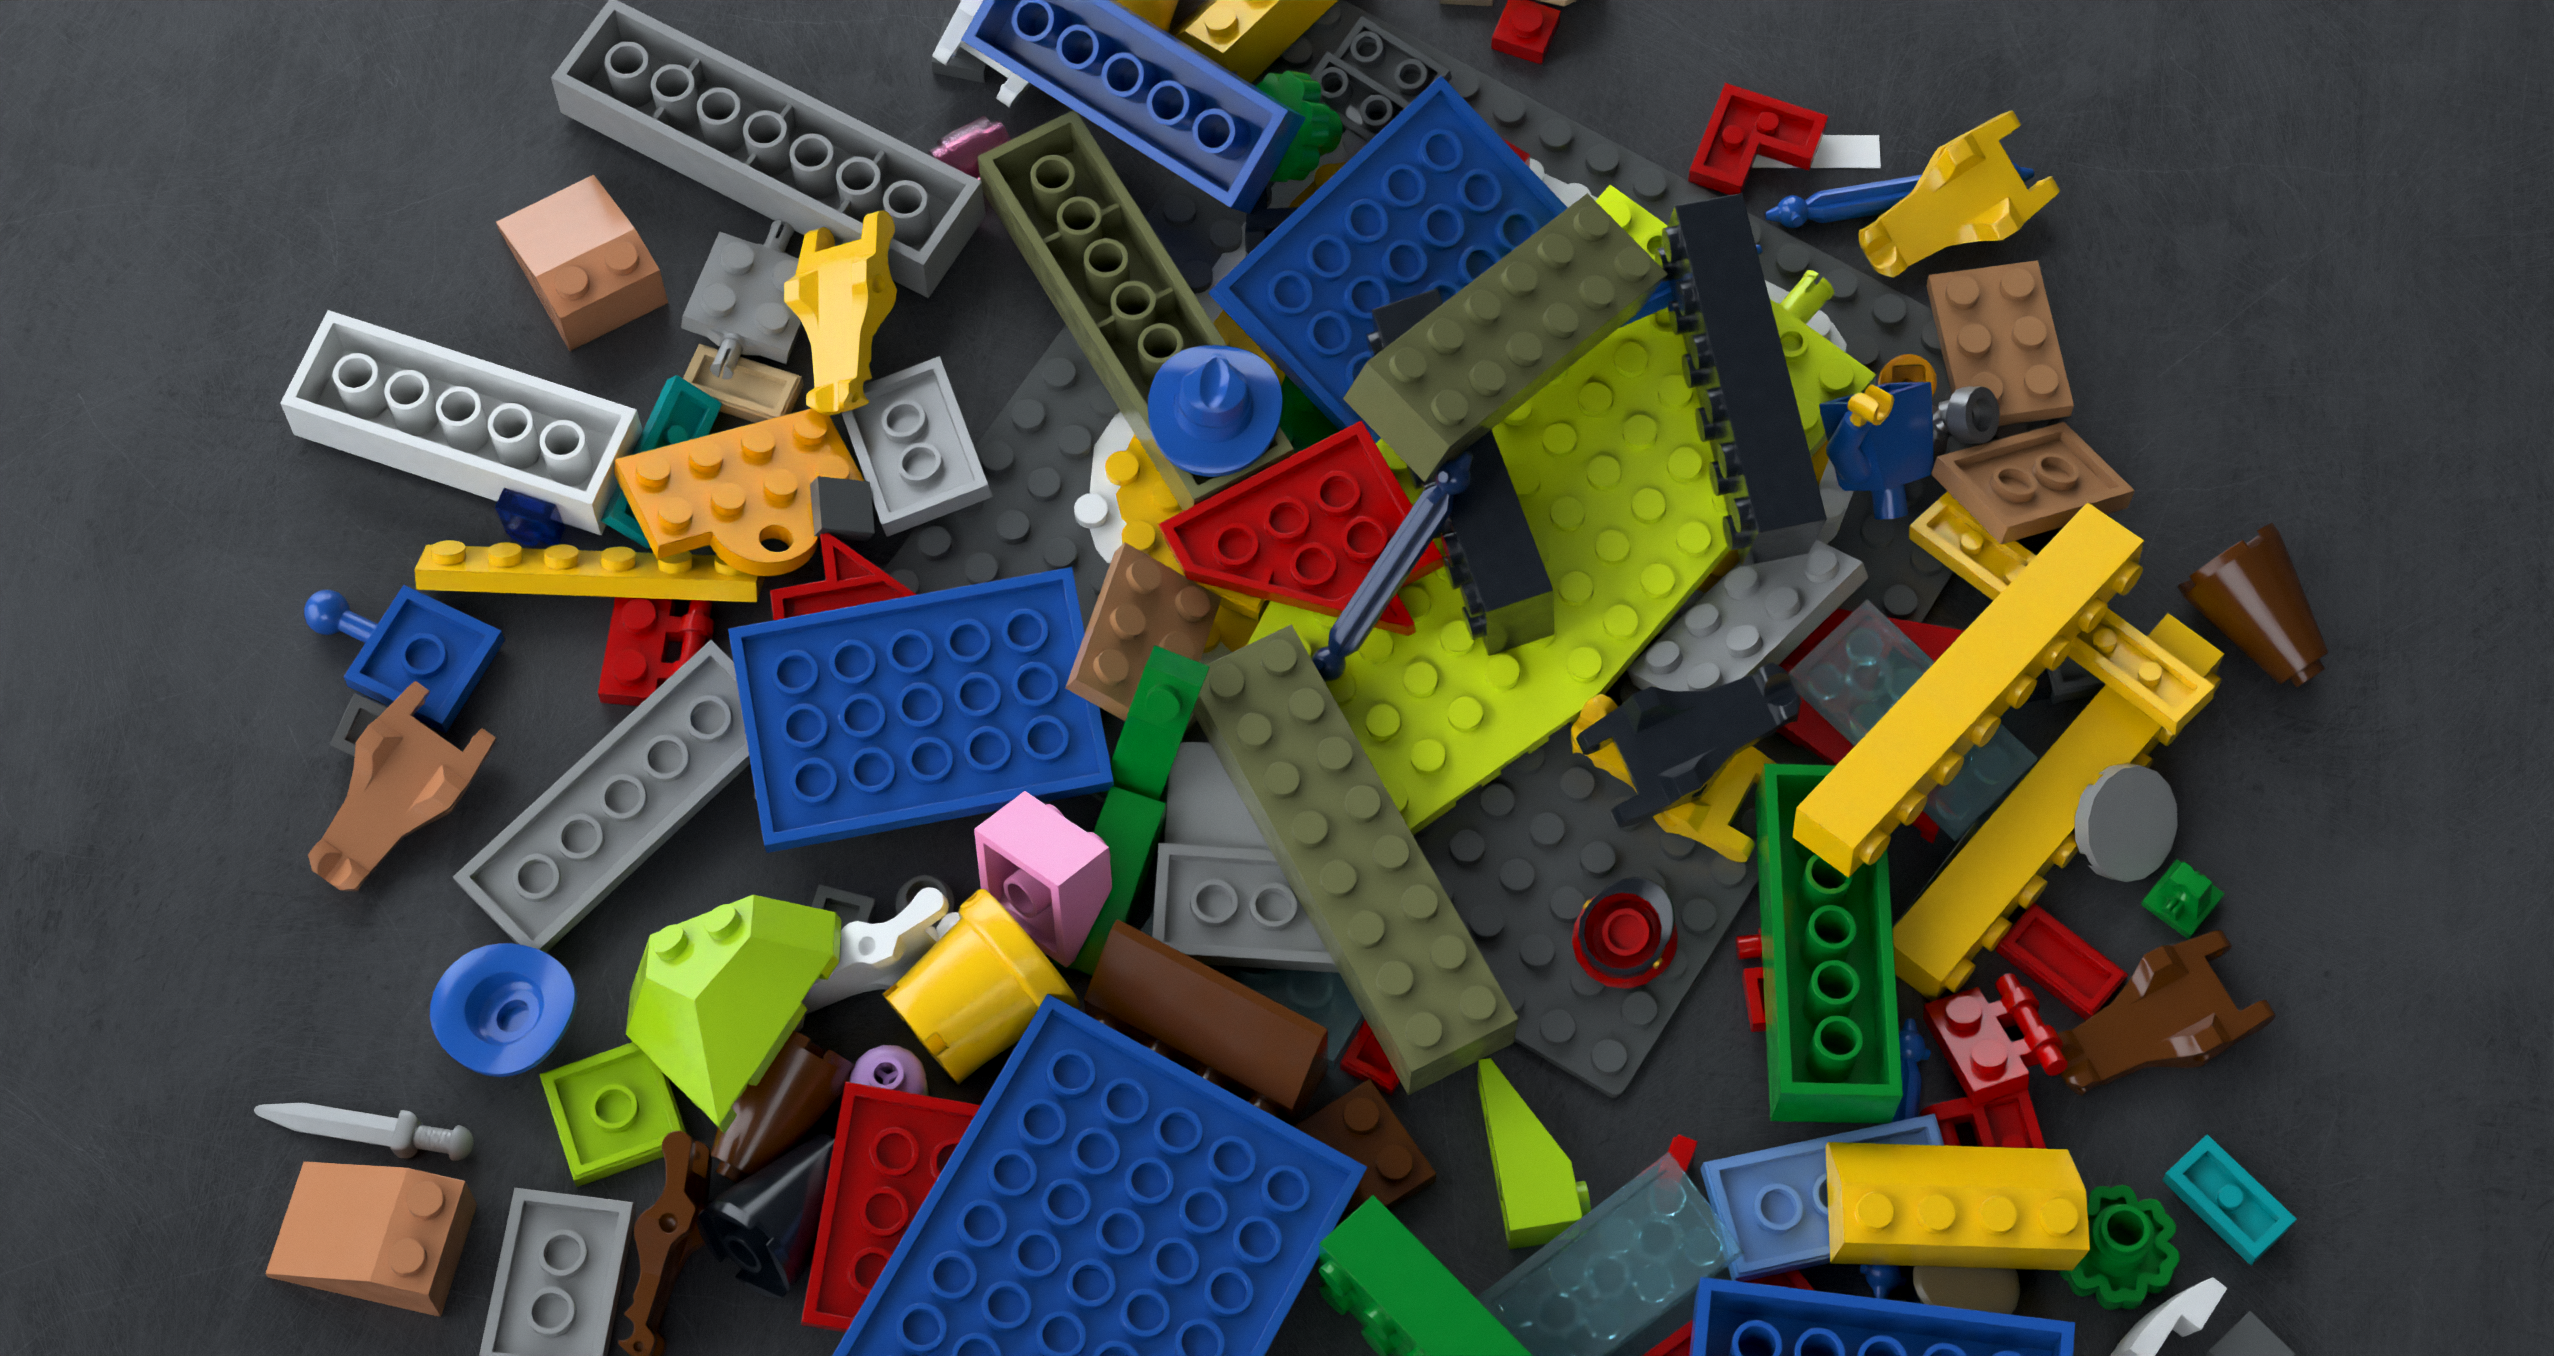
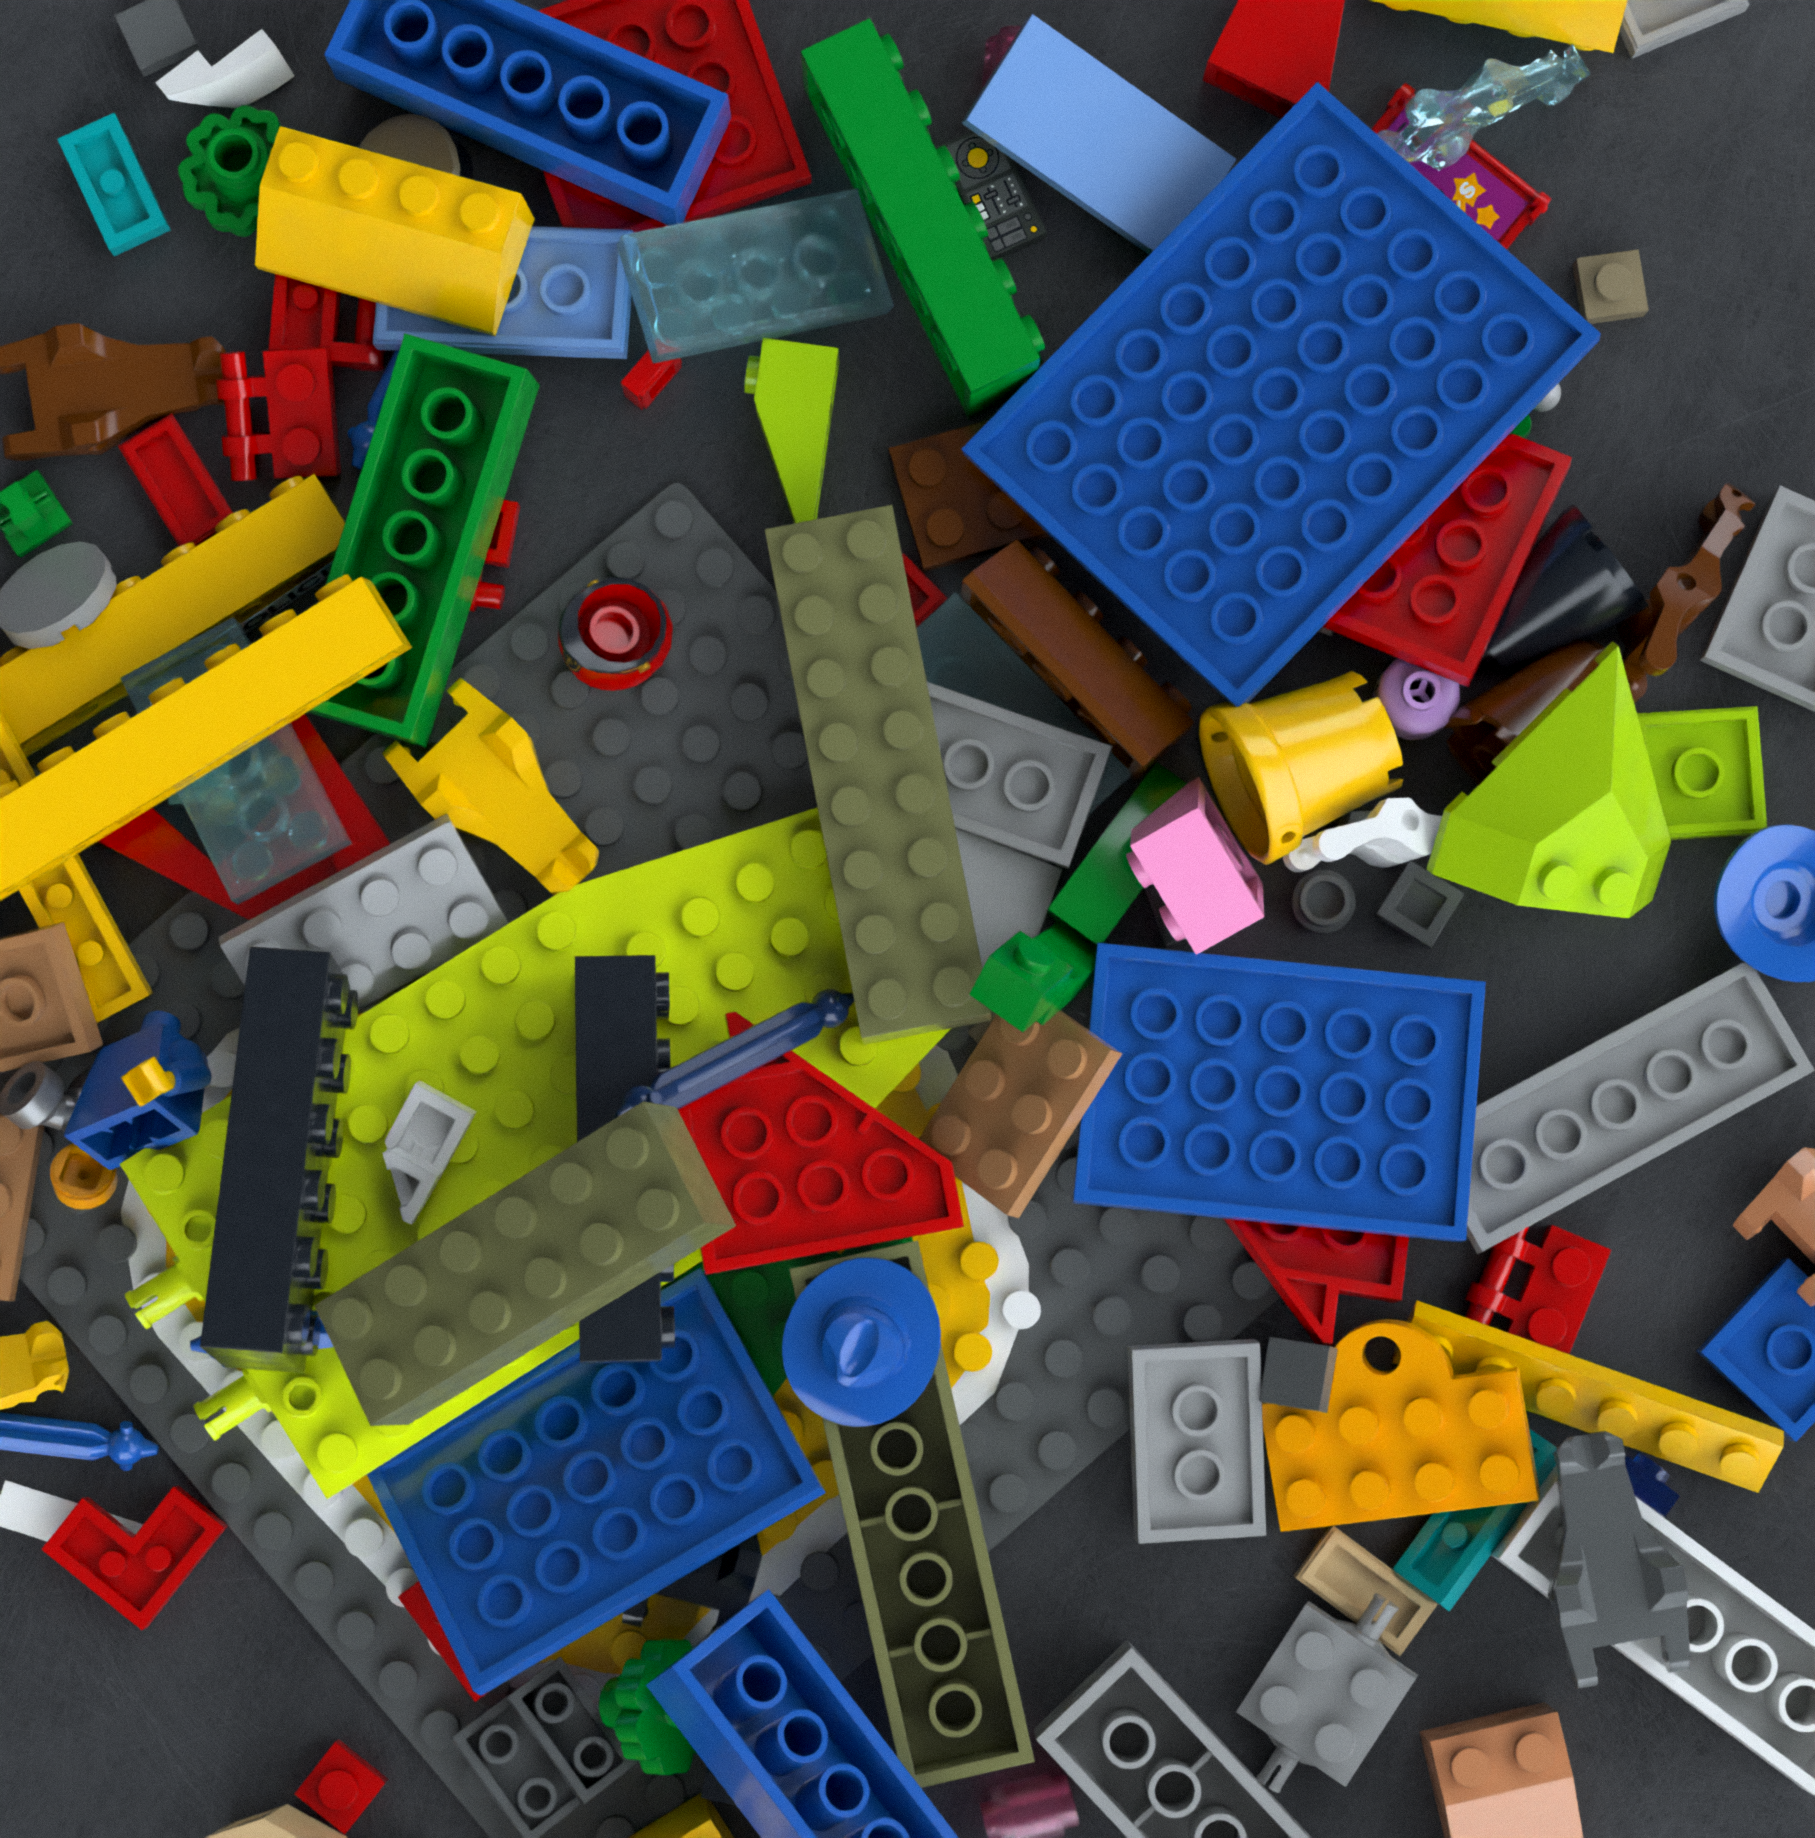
camera: 165 degrees left, 20 degrees up
(542, 417) = (1610, 1569): none -> dark grey animal
(842, 301) = (1231, 1627): yellow animal -> none
(1631, 455) = (423, 1144): none -> white slope
(1685, 739) = (483, 795): black animal -> none

